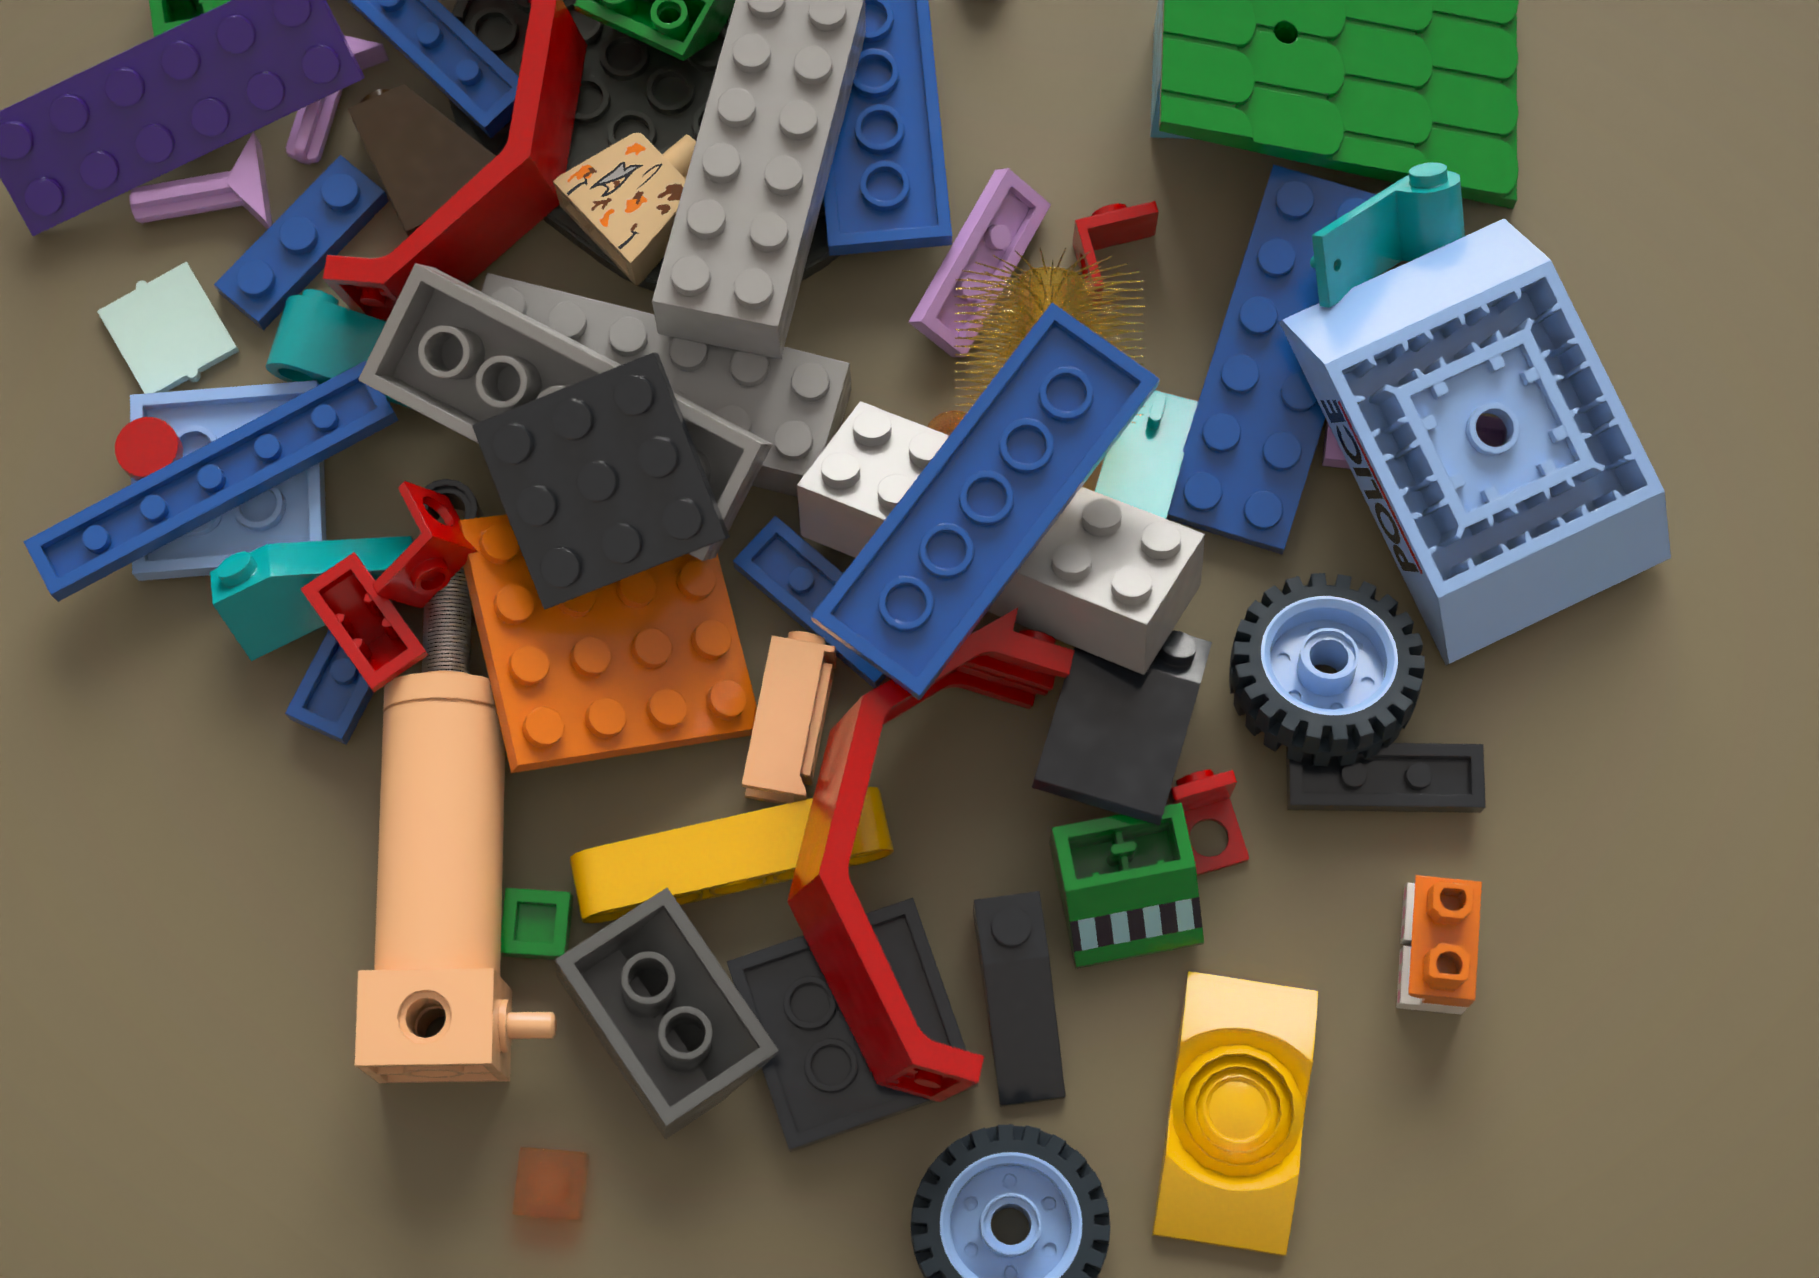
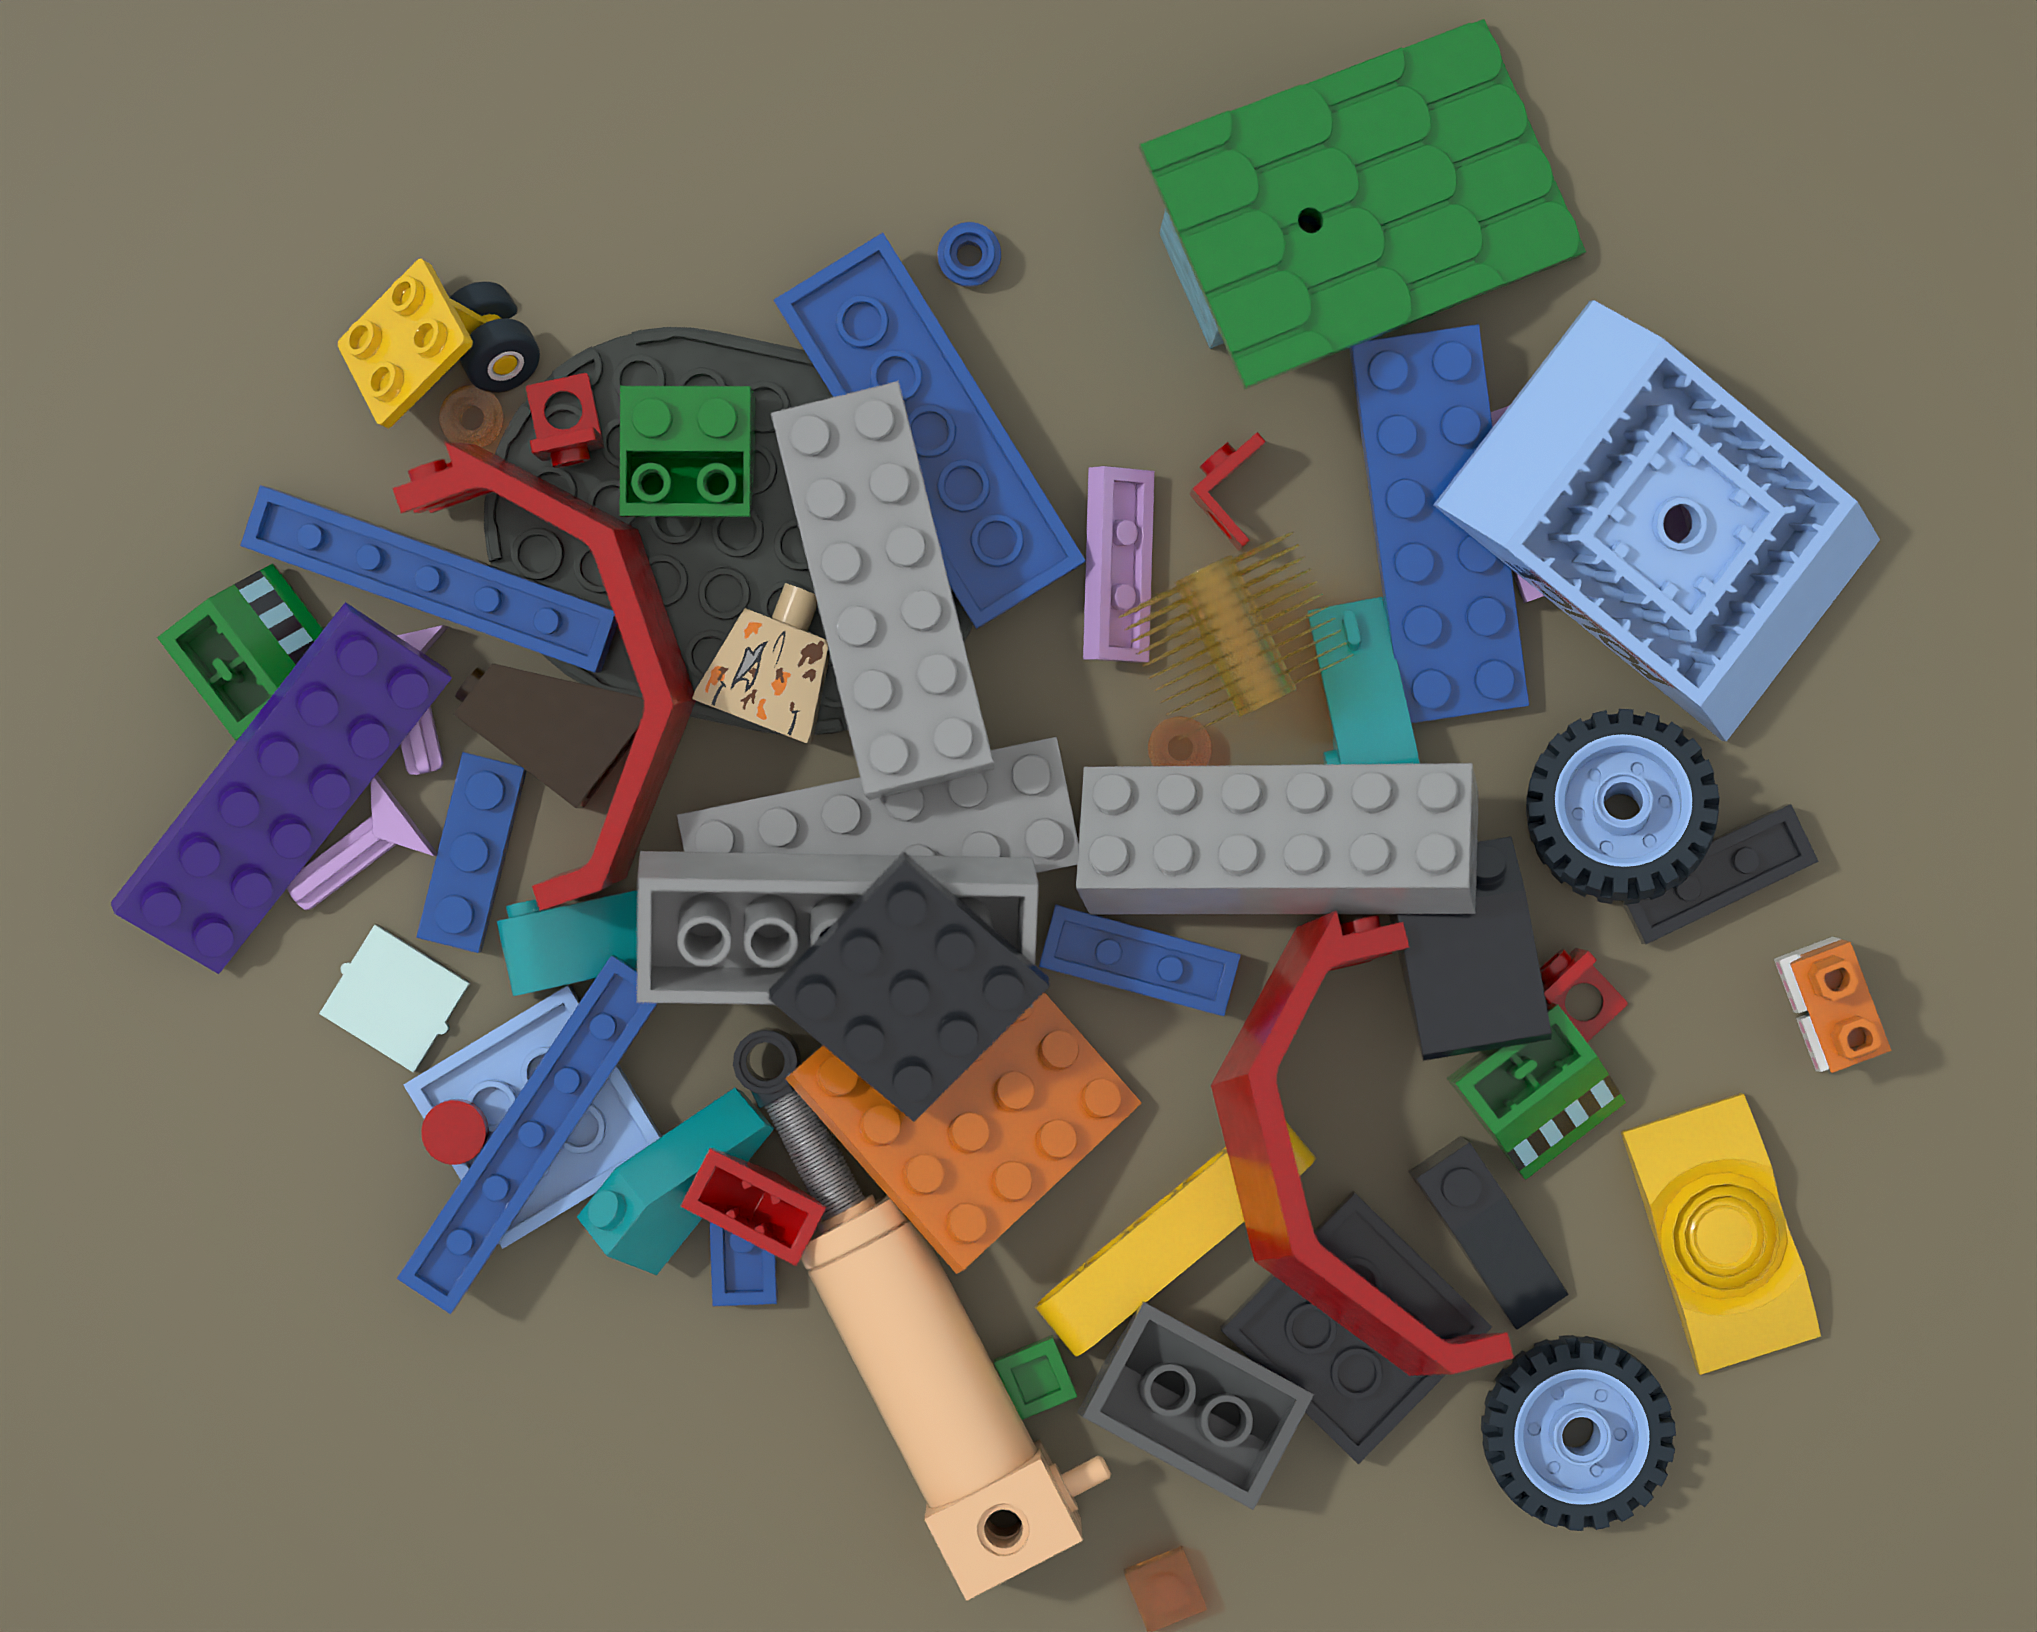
camera: 25 degrees left, 15 degrees up
(432, 556) = (790, 1109): red bracket -> none
(789, 718) = (1165, 1085): light nougat window -> none
(985, 501) = (1272, 845): blue plate -> none
(1389, 228) = (1507, 338): teal door -> none

